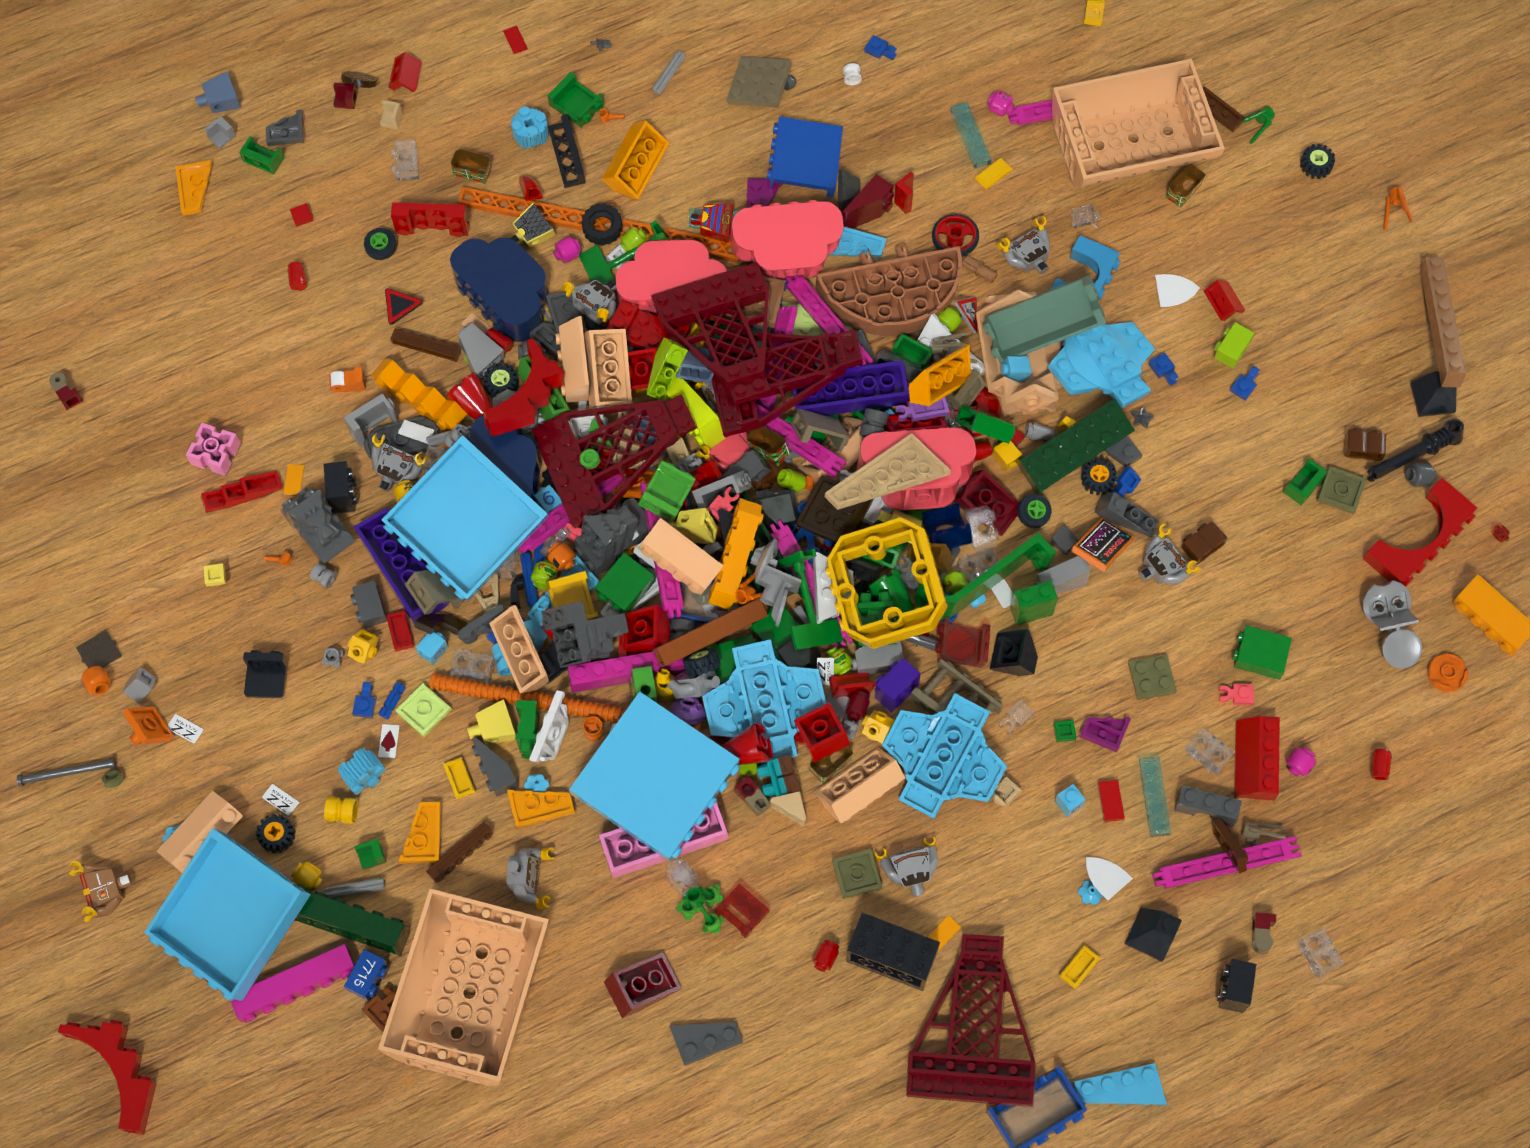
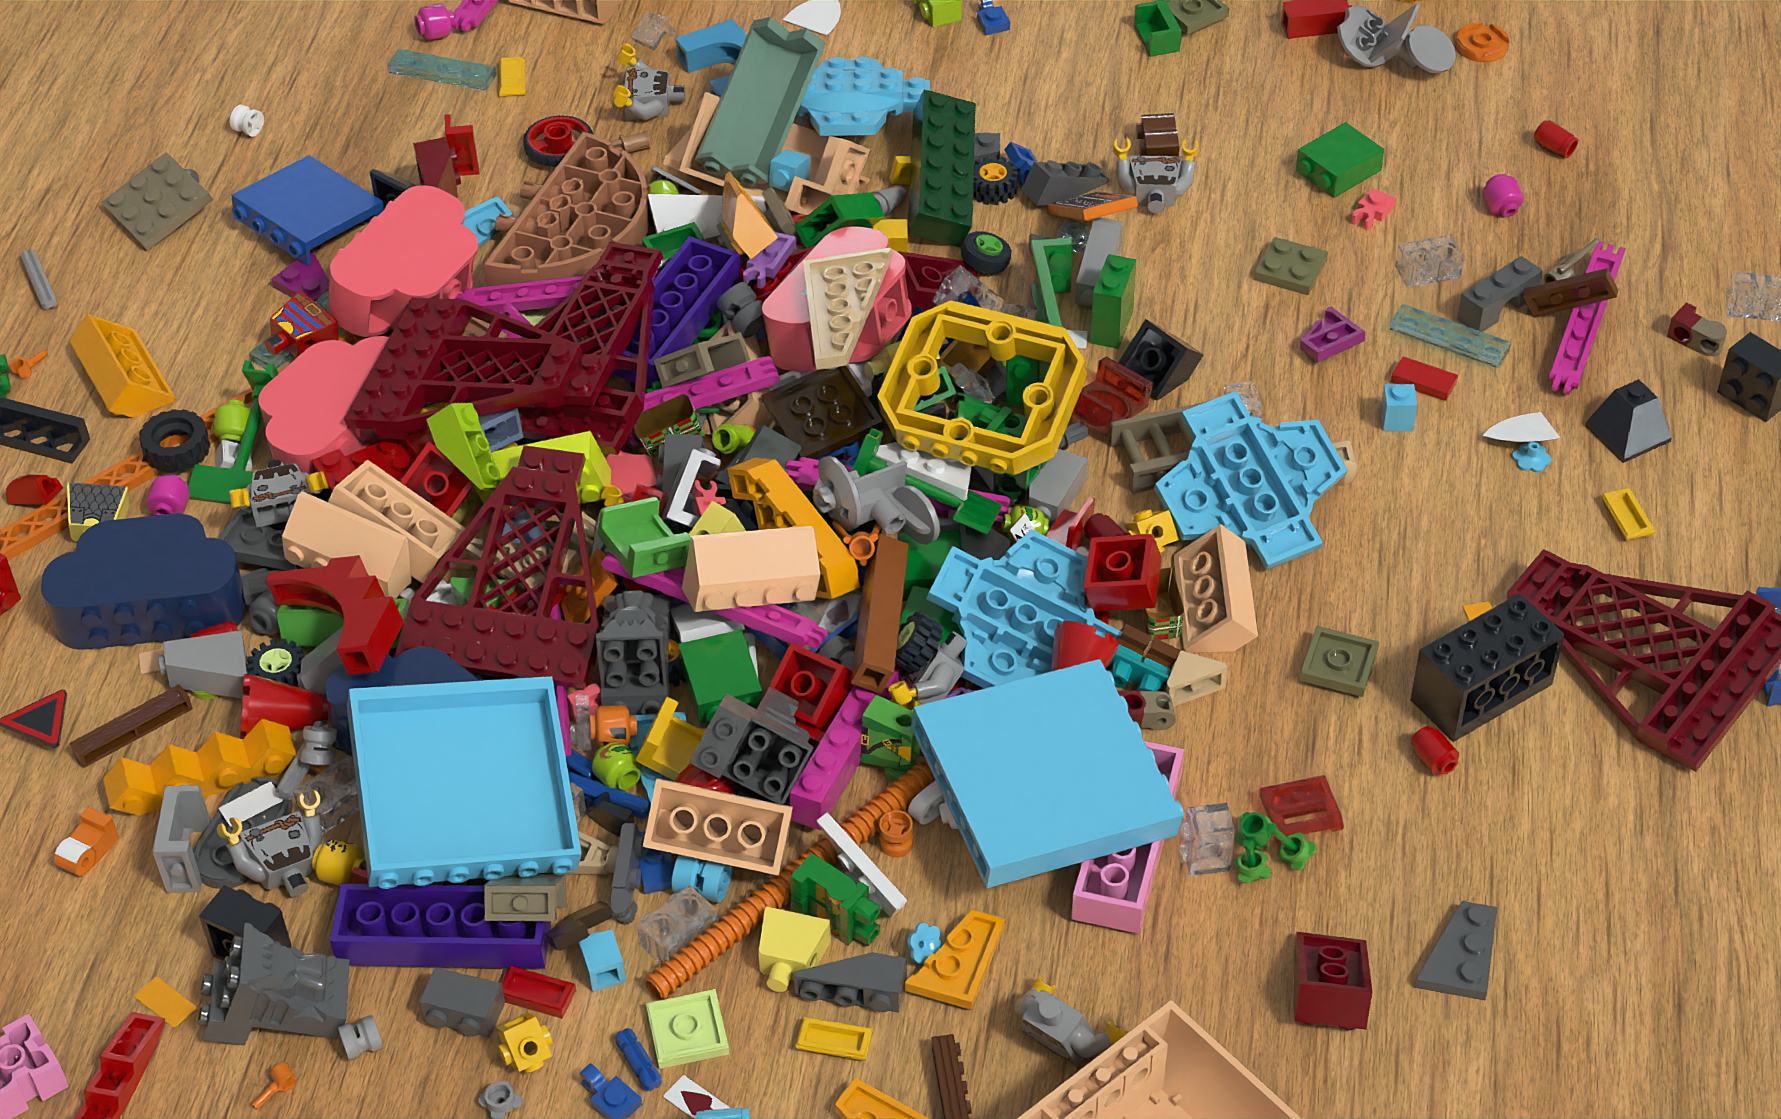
camera: 55 degrees left, 20 degrees down
(589, 459) = (510, 600): bright green tile -> none
(879, 47) = (240, 86): blue plate -> none
(896, 685) = (1112, 478): dark purple brick -> none
(911, 866) = (1372, 598): light grey torso -> none
(942, 345) = (697, 208): dark tan plant -> none
(1064, 731) = (1297, 373): green tile -> none
(1164, 367) = (911, 65): blue plate -> none
(1257, 758) = (1483, 229): red slope -> none

